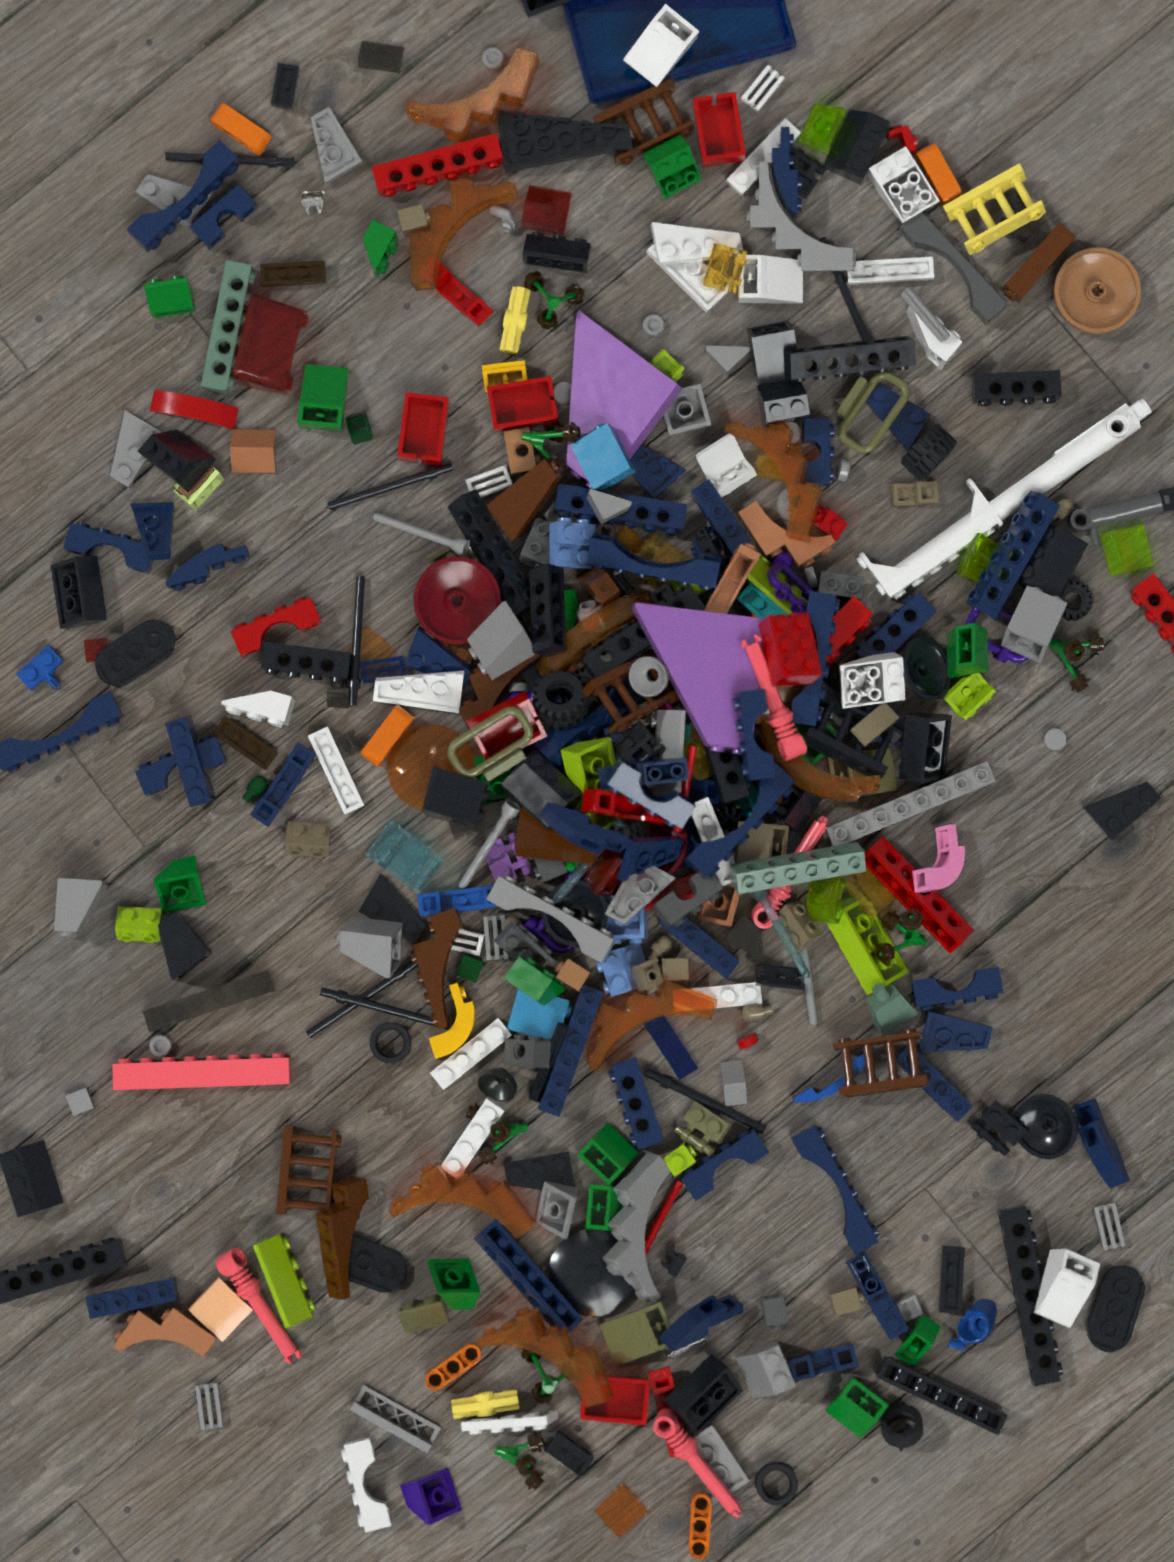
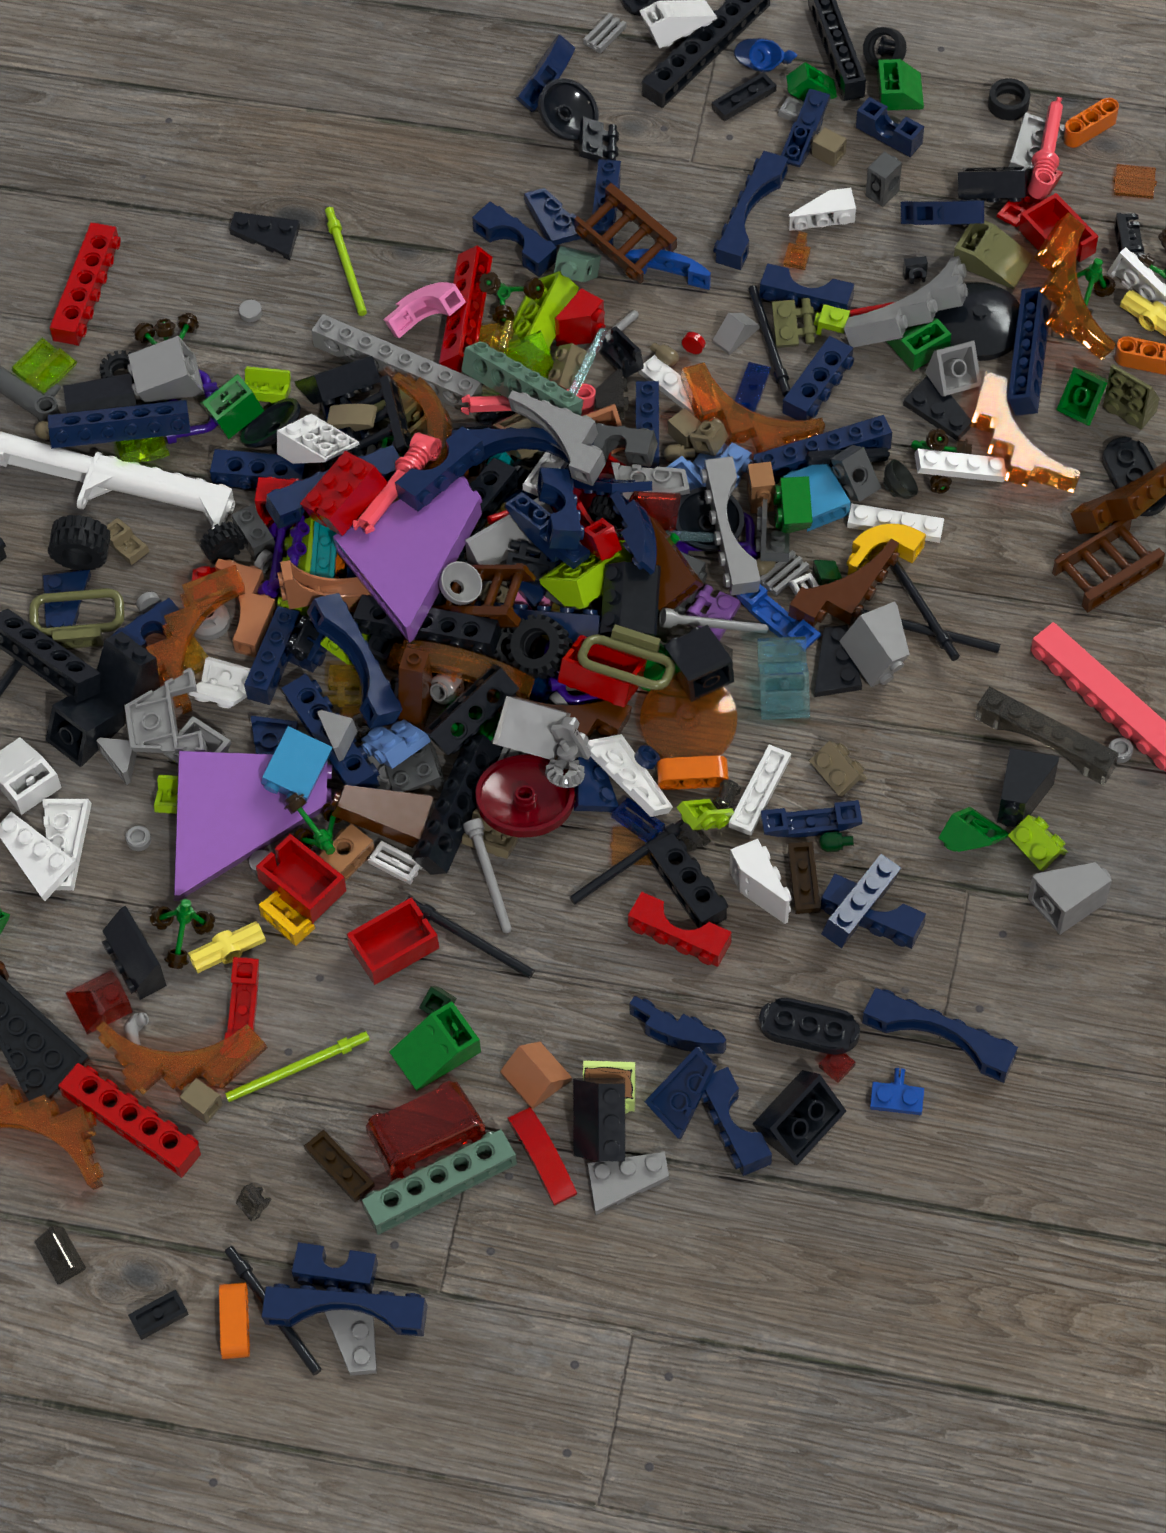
camera: 125 degrees left, 25 degrees down
(170, 297) = (453, 1250): green slope -> none
(334, 147) = (184, 1225): light grey wing -> none
(342, 709) = (703, 814): none -> lime bracket
(378, 342) = (343, 1046): none -> lime bar
(380, 245) = (253, 1101): green slope -> none
(406, 1041) = (945, 566): black tyre -> none
(425, 715) = (647, 757): none -> dark blue tile
(450, 629) = (571, 779): none -> light grey gear
(465, 659) = (570, 740): none -> light grey hips
(607, 1153) = (878, 369): green slope -> none
(708, 853) = (569, 430): none -> light grey arch
(719, 267) = (40, 810): clear yellow plate -> none
(728, 393) = (153, 719): none -> light grey wing
(764, 1189) = (798, 254): none -> clear orange plate
(765, 1371) = (933, 152): light grey slope -> none
(785, 1251) = (829, 209): none -> white slope
(832, 969) = (580, 319): none -> red slope
(847, 555) = (222, 542): none -> black tyre
(1083, 862) = (335, 229): none -> lime bar

